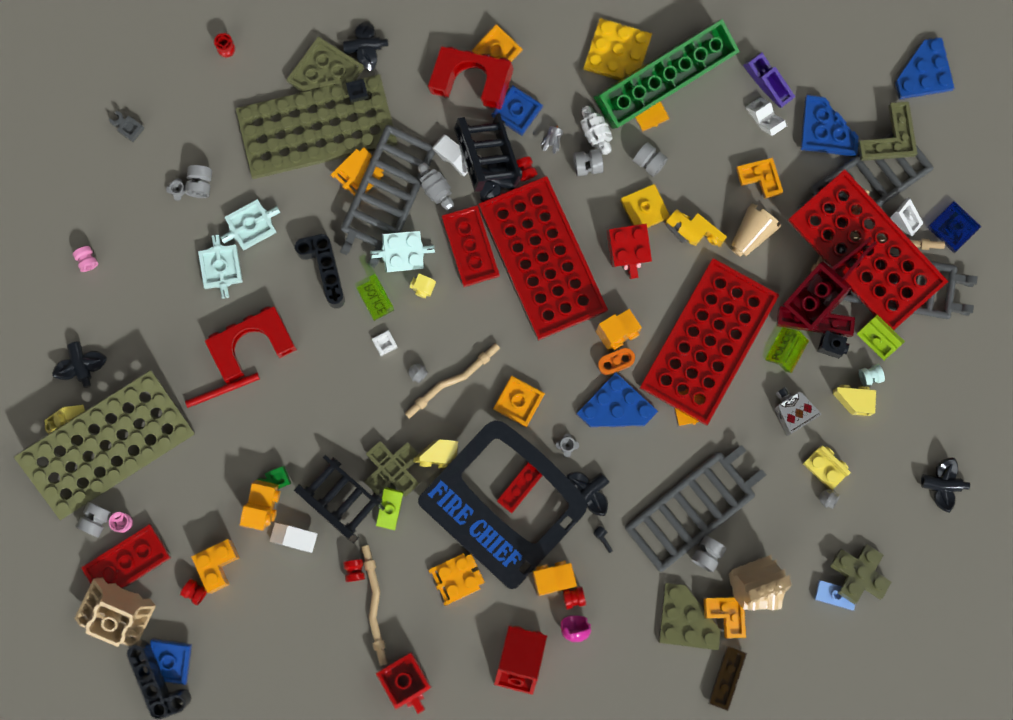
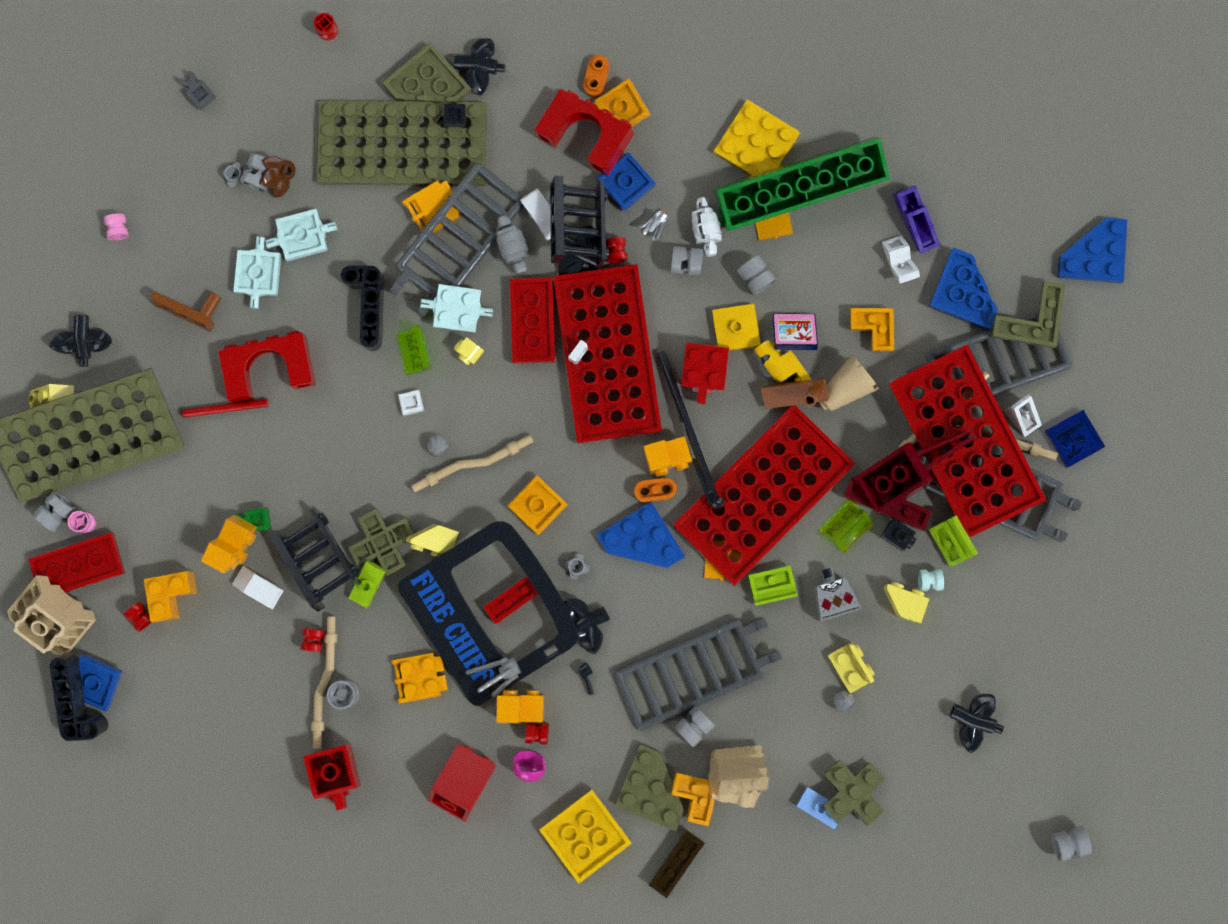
camera: 25 degrees right, 5 degrees up
(181, 318) = (199, 318): none -> dark orange piece
(215, 180) = (275, 175): none -> reddish brown plate
(395, 610) = (343, 694): none -> light grey wheel
(467, 29) = (596, 75): none -> orange plate
(518, 262) = (578, 352): none -> white tile
(534, 548) = (508, 669): none -> light grey plant
(641, 676) = (585, 836): none -> yellow plate
(648, 328) = (699, 460): none -> black bar
(696, 197) = (794, 331): none -> tile
(712, 248) = (795, 393): none -> dark orange piece
(739, 416) = (772, 585): none -> lime plate

